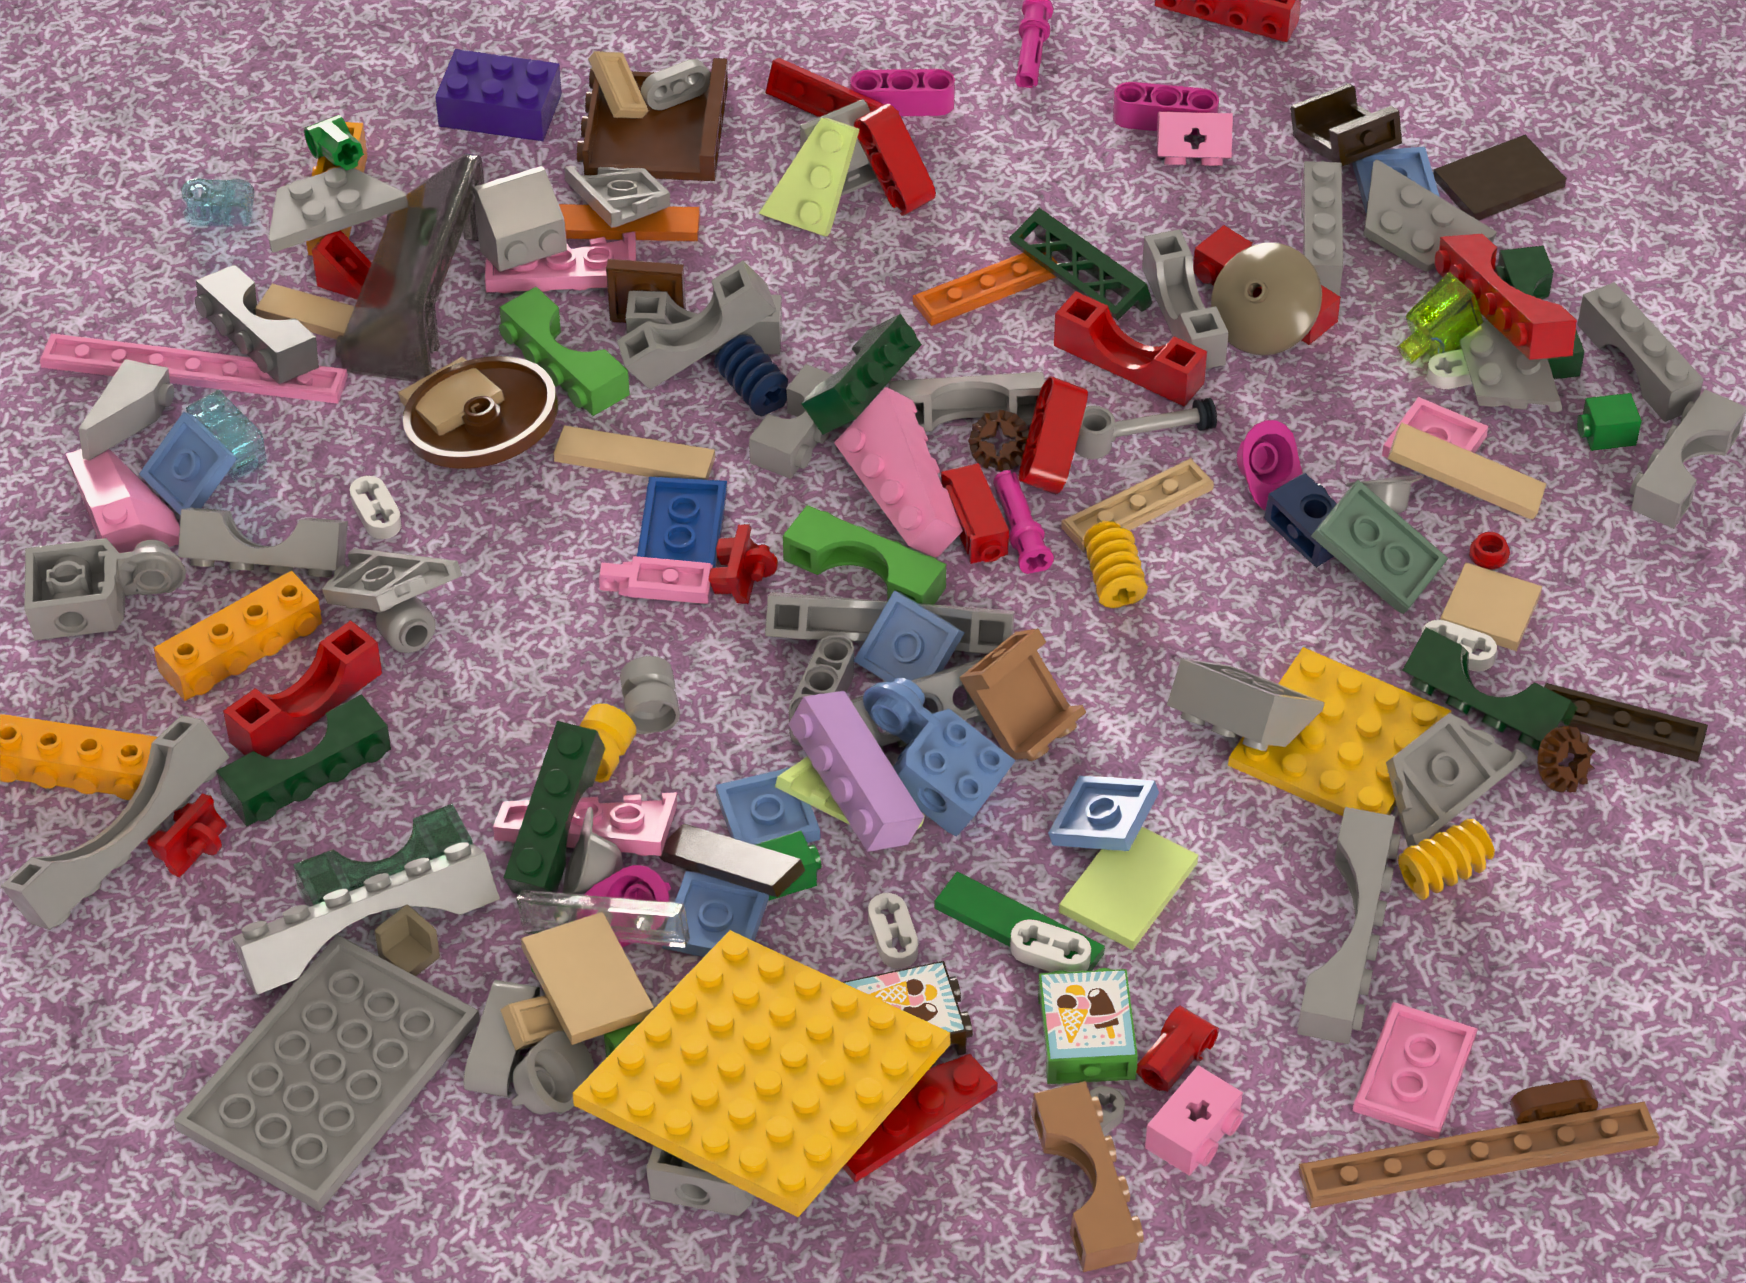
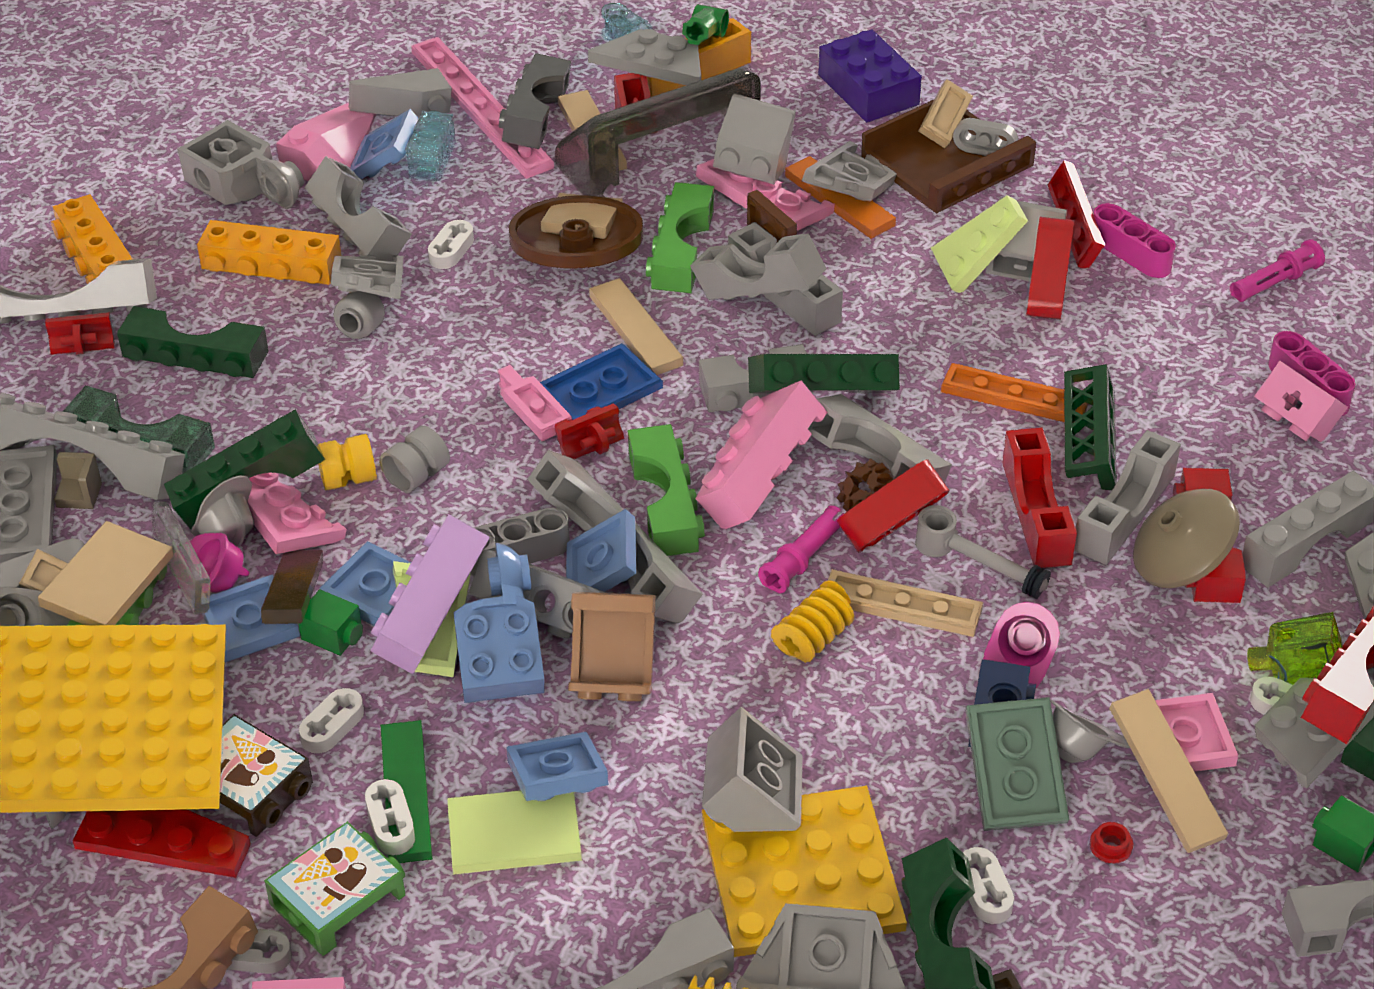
camera: 50 degrees right, 5 degrees down
(340, 668) = (203, 304): red arch -> none
(752, 374) = (769, 325): dark blue piece -> none
(983, 526) = (776, 518): red window -> none
(1180, 1042) = (378, 959): red piece -> none
(1492, 604) = (1055, 881): tan tile -> none

